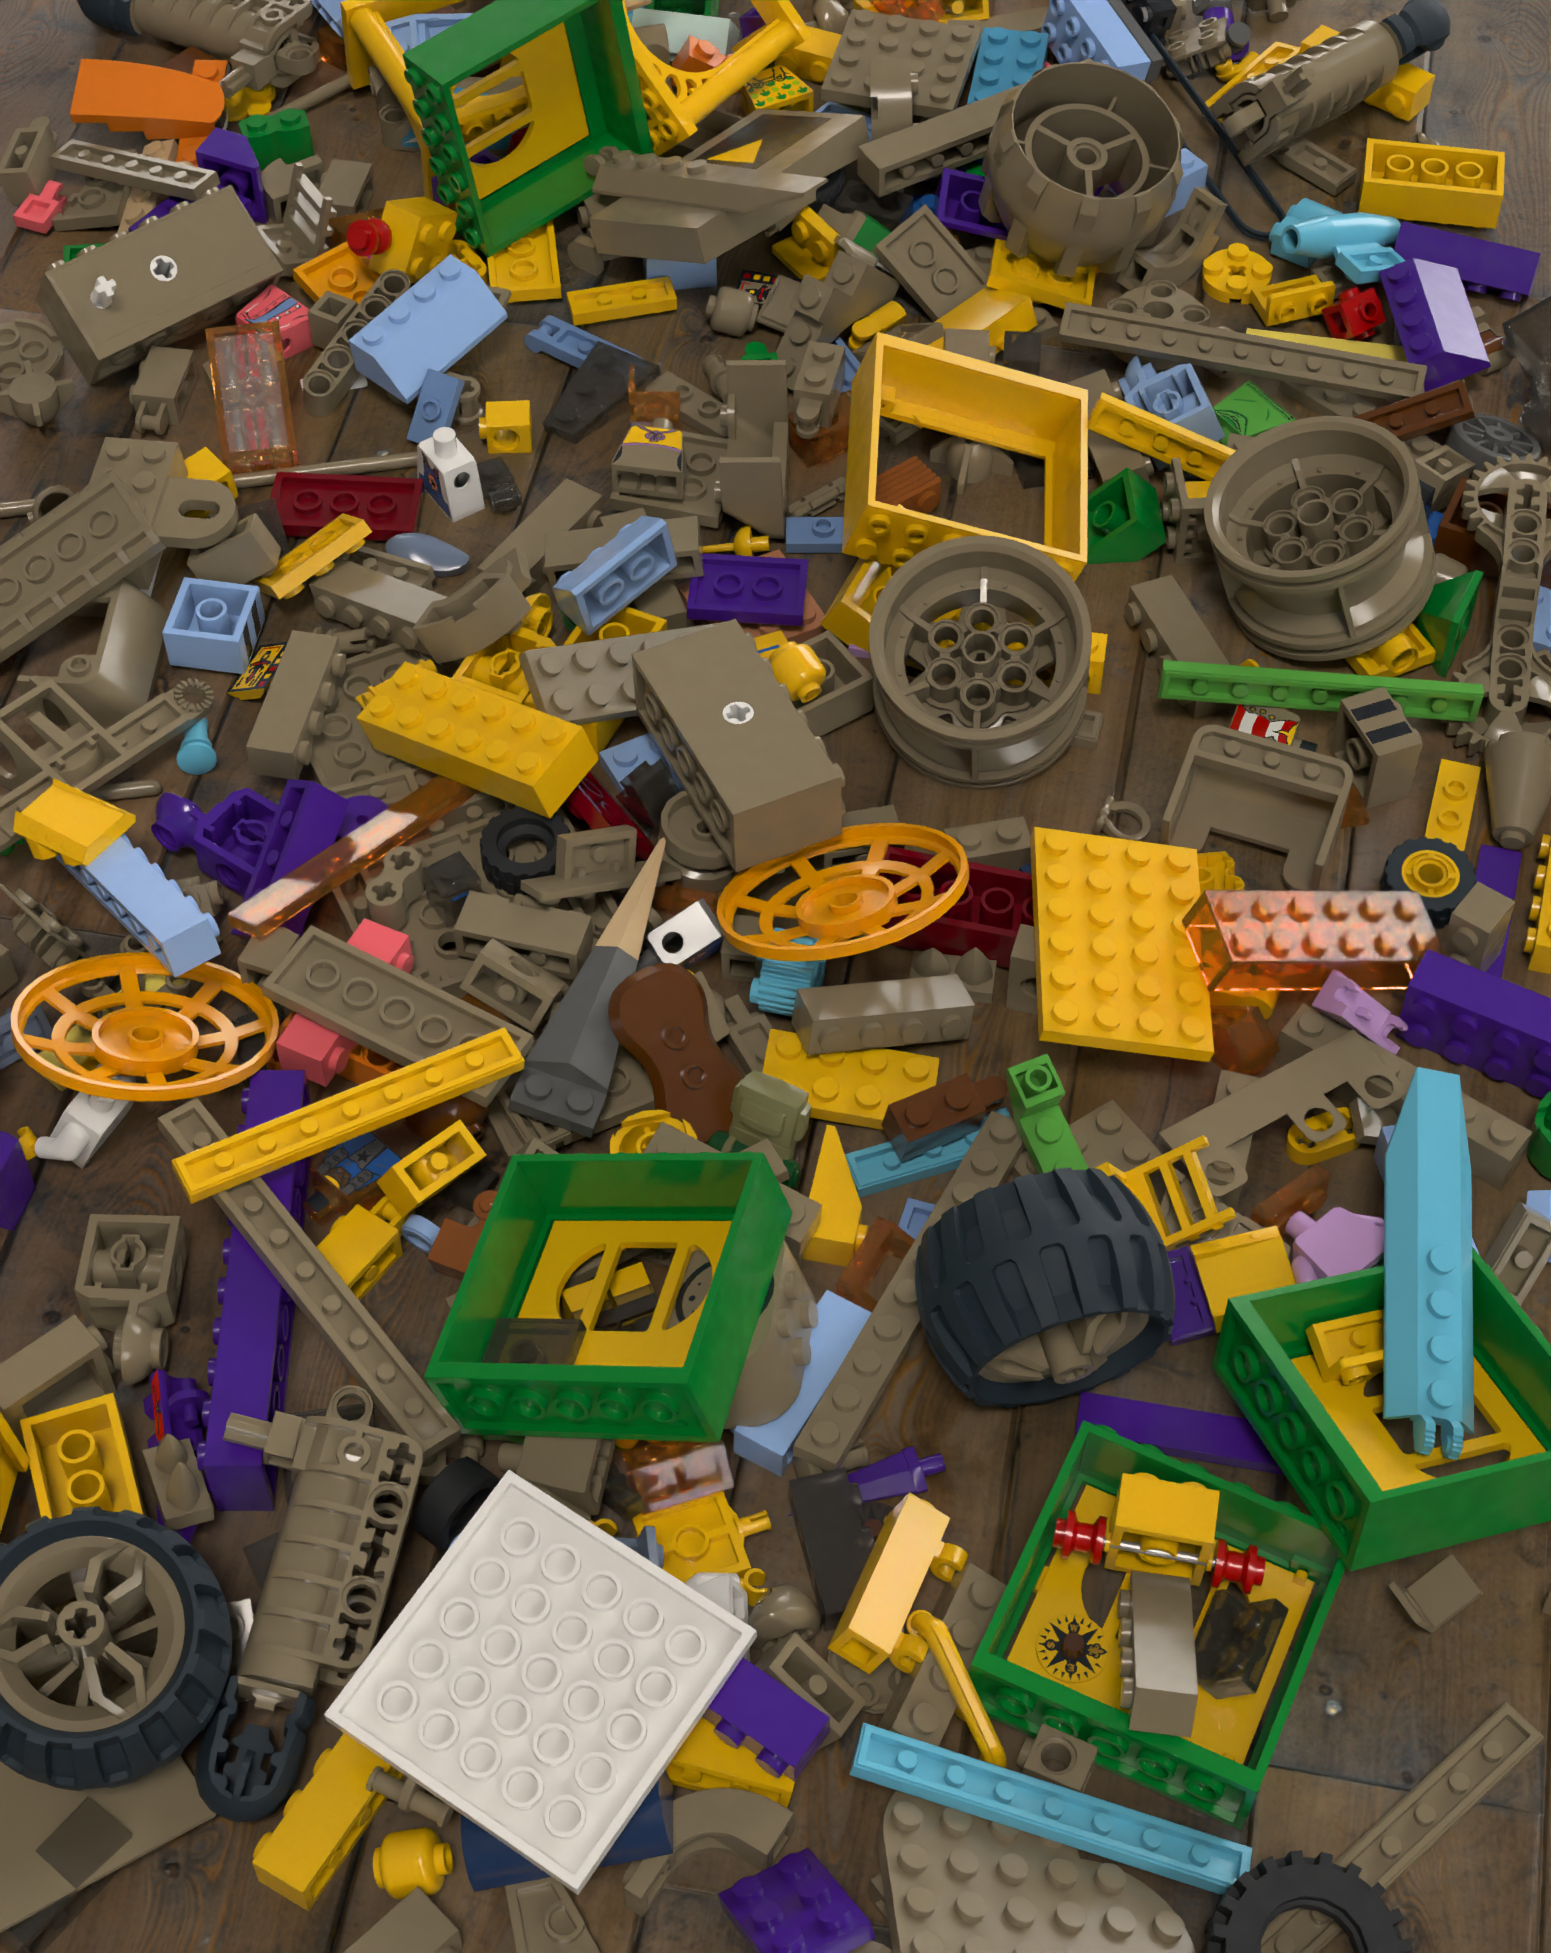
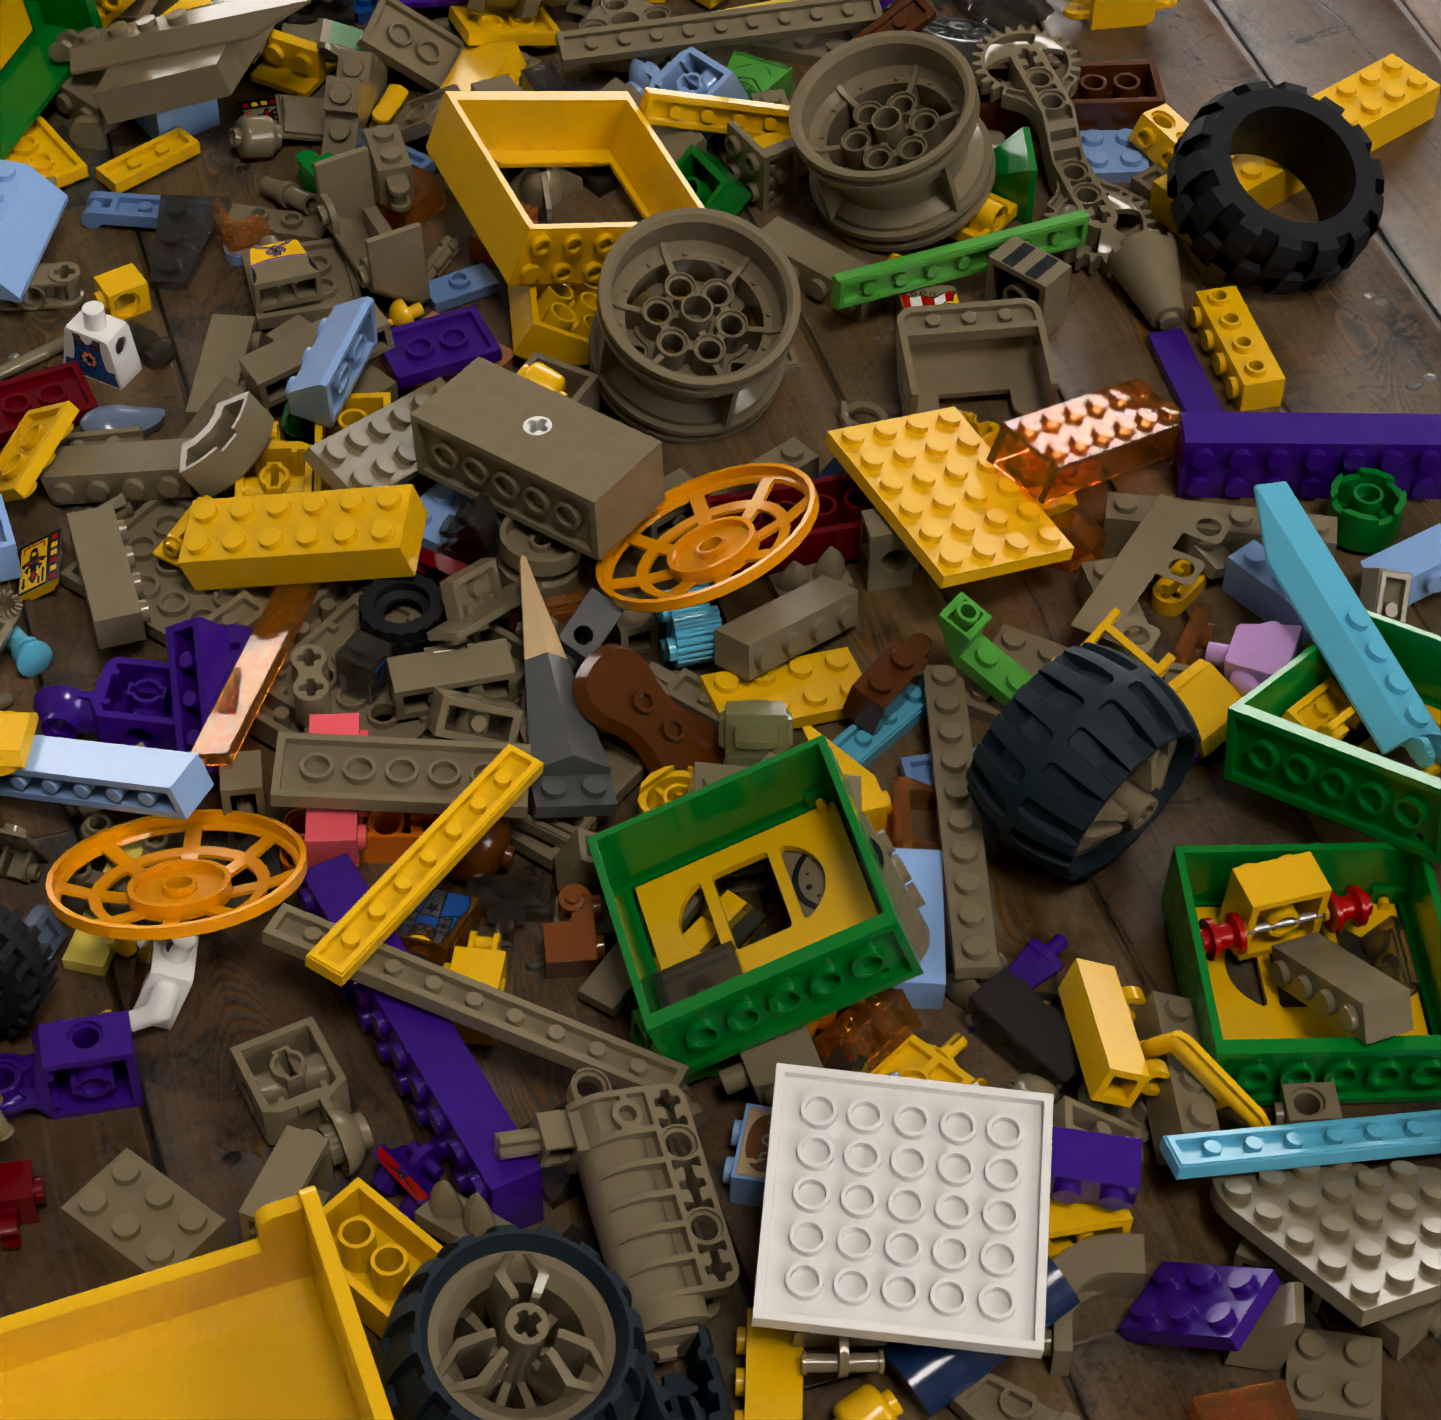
camera: 30 degrees left, 5 degrees down
(420, 1232) = (522, 949): light blue tile -> none
(431, 1168) = (506, 888): yellow brick -> none
(435, 405) = (48, 298): medium blue plate -> none
(452, 1501) = (714, 1123): black tyre -> none
(1072, 1648) = (1255, 1021): piece -> none
(1180, 1431) = (1276, 825): dark purple tile -> none
(1355, 1009) = (1143, 479): lavender hinge -> none
(1435, 871) = (1129, 359): wheel -> none
(1453, 802) = (1106, 319): yellow plate -> none
(1478, 927) = (1202, 380): dark tan brick -> none

